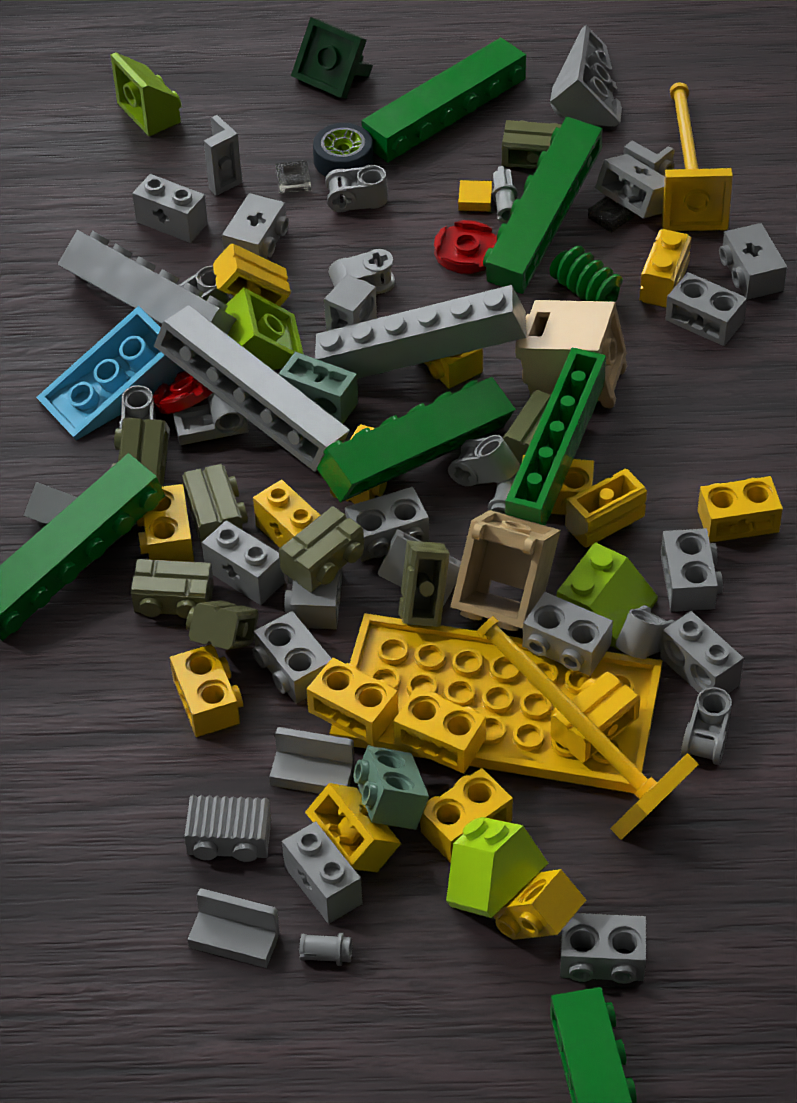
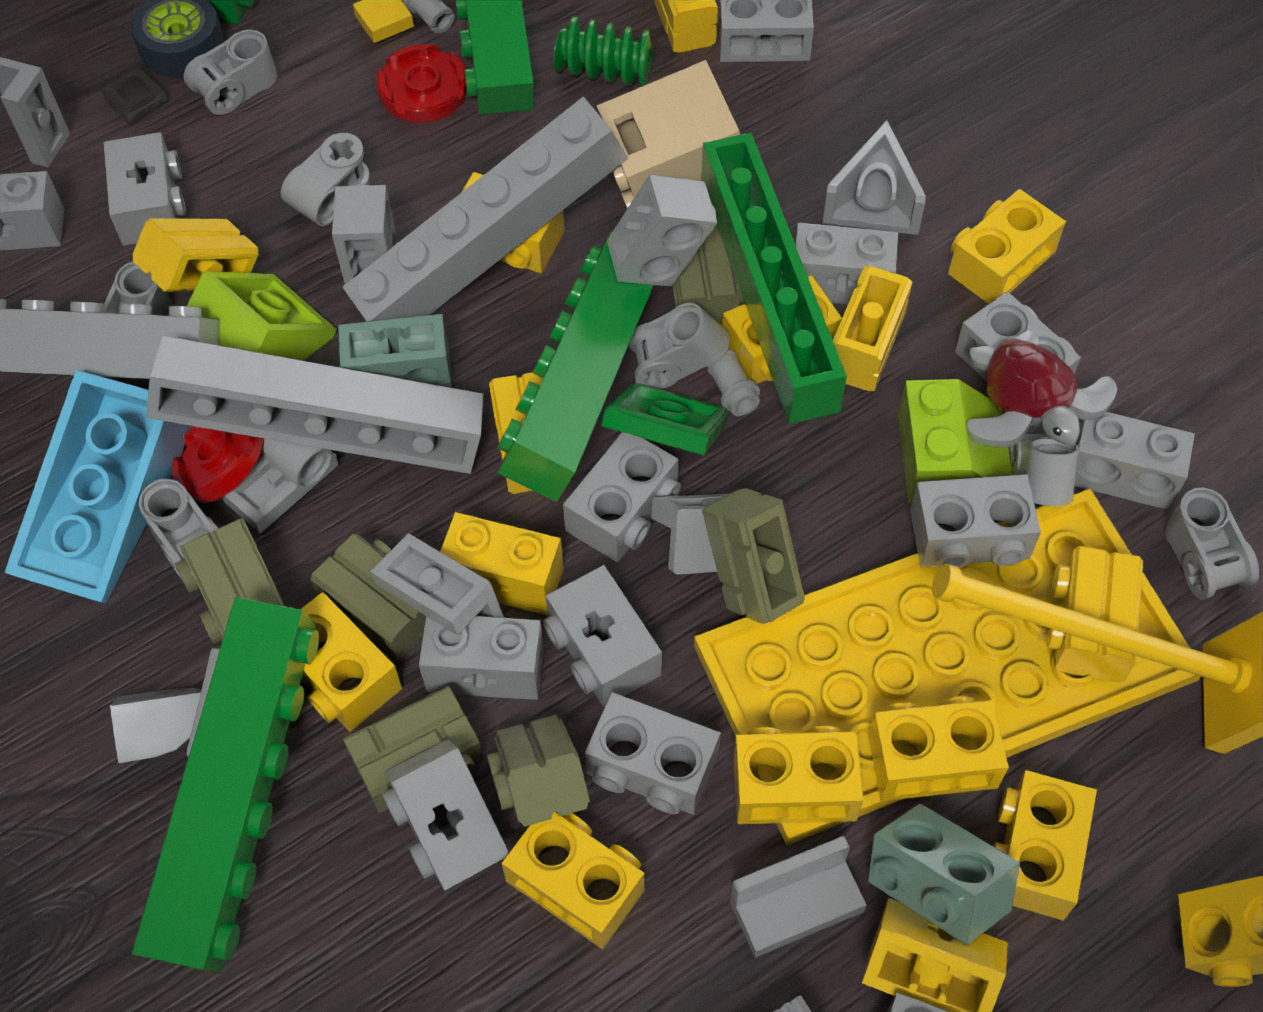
camera: 35 degrees left, 10 degrees up
(171, 601) = (469, 839): none -> light grey brick
(240, 507) = (435, 585): none -> light grey panel
(322, 549) = (594, 584): olive brick -> none
(442, 494) = (666, 418): none -> green plate
(491, 865) = (1161, 912): lime slope -> none
(509, 553) = (843, 448): tan container -> none
(510, 385) = (661, 230): none -> light grey brick
(617, 452) = (839, 253): none -> light grey brick
(663, 582) = (1034, 391): none -> animal
(681, 434) = (876, 189): none -> light grey slope

